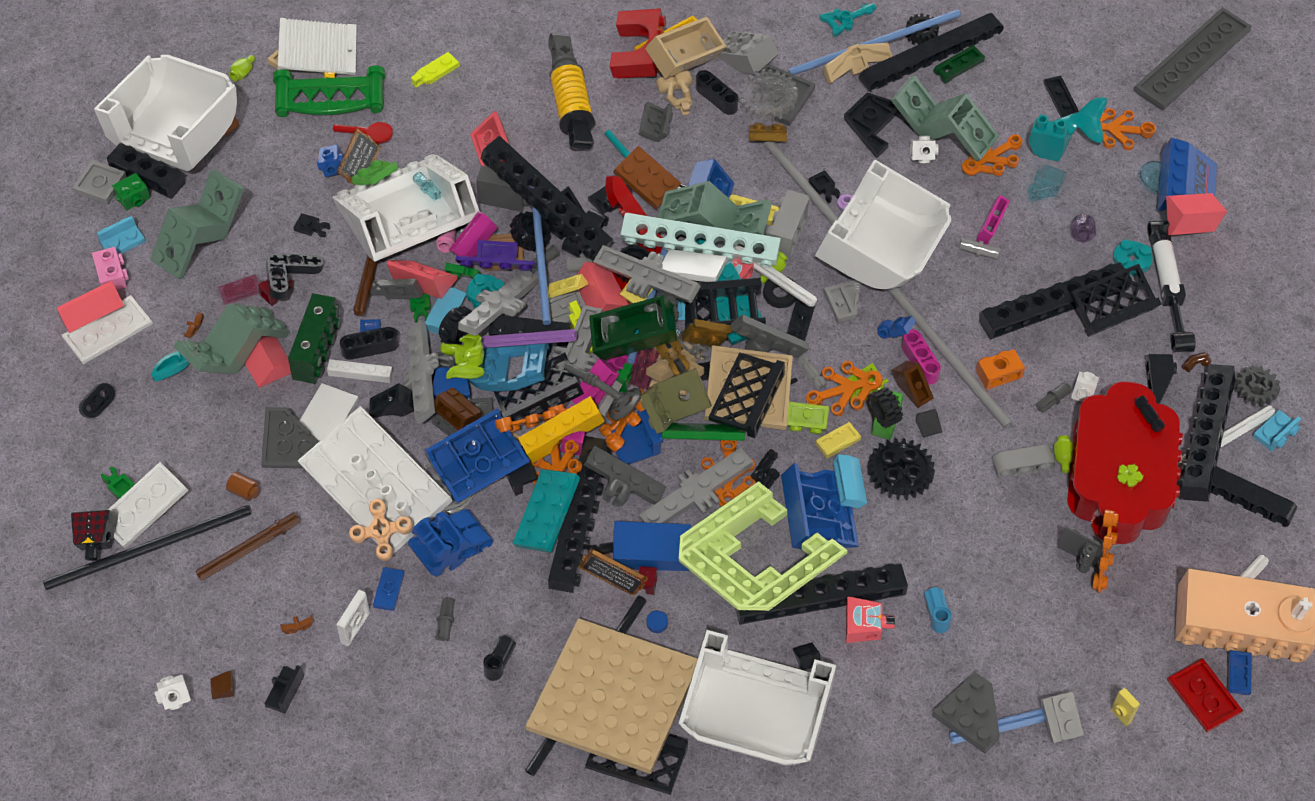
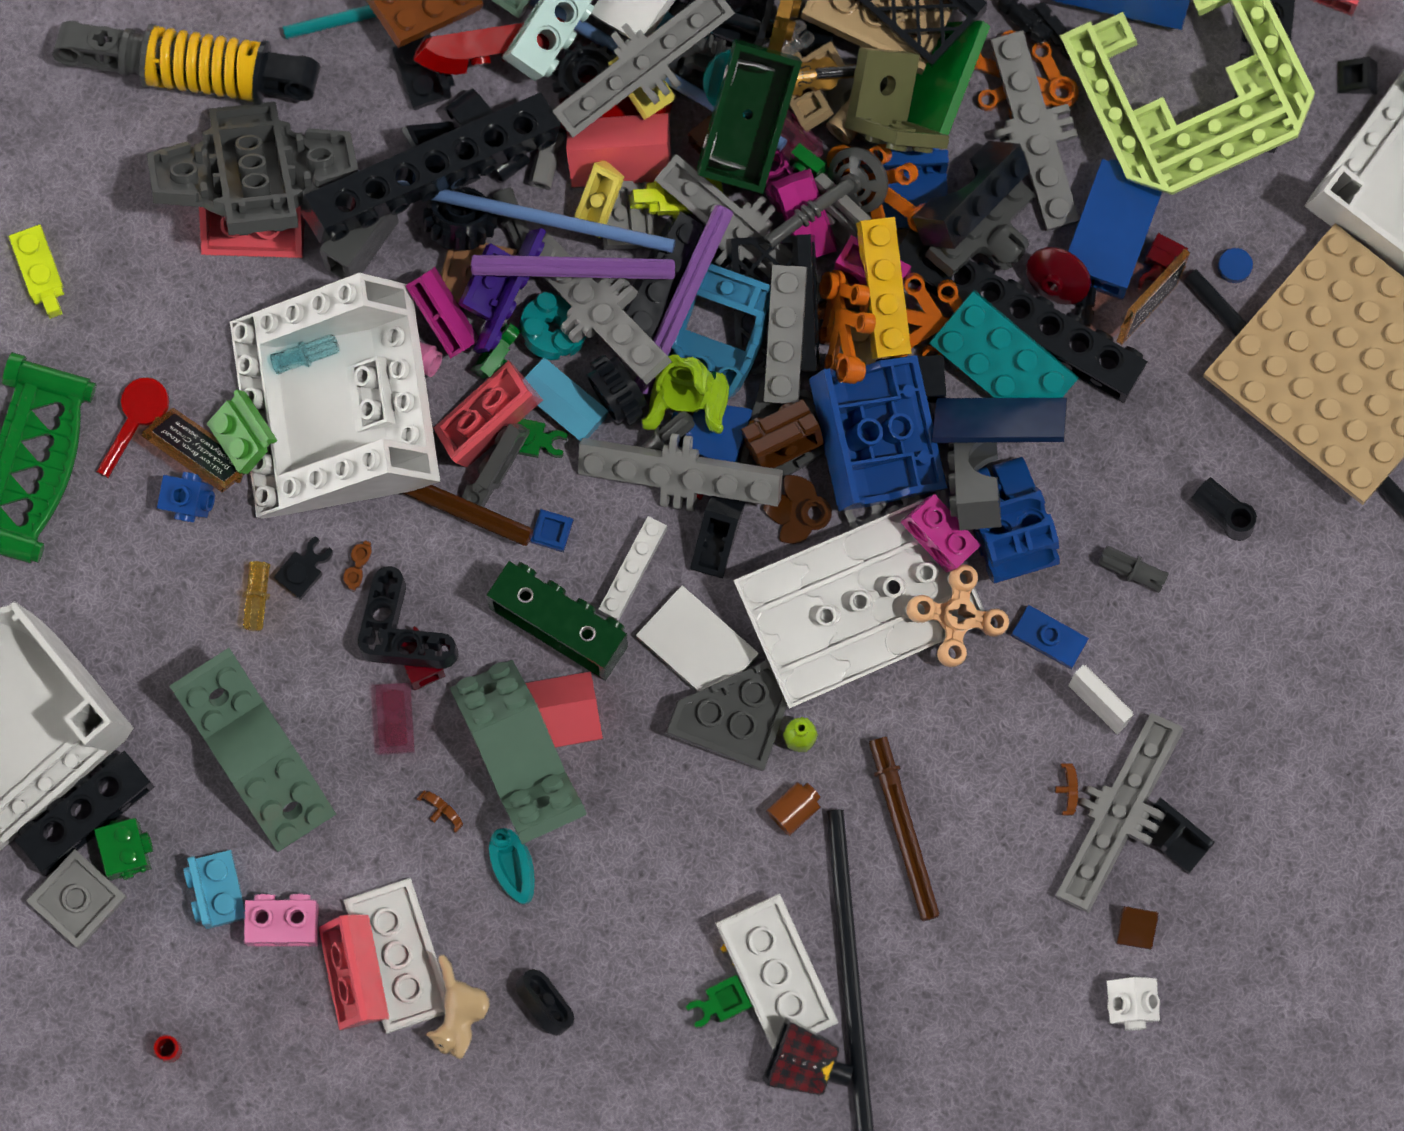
camera: 70 degrees left, 20 degrees up
(27, 242) = (160, 1042): none -> red hinge
(81, 360) = (462, 1008): none -> tan animal
(286, 474) = (800, 734): none -> lime plant
(288, 209) = (256, 596): none -> clear yellow axle
(290, 654) = (1120, 813): none -> light grey hinge
(313, 248) = (360, 555): none -> dark orange piece
(360, 342) = (586, 522): black beam -> none
(421, 439) = (794, 509): none -> reddish brown plate
(425, 500) = (940, 533): none -> dark pink brick
(488, 508) = (976, 494): none -> dark grey arch
(505, 514) = (999, 420): none -> dark blue piece
(516, 280) = (572, 267): none -> medium lavender axle
(518, 392) = (785, 334): none -> light grey plate
(523, 128) = (250, 168): none -> dark grey plate
(608, 523) = (1058, 275): none -> dark red dish
(655, 470) = (952, 217): none -> black arch

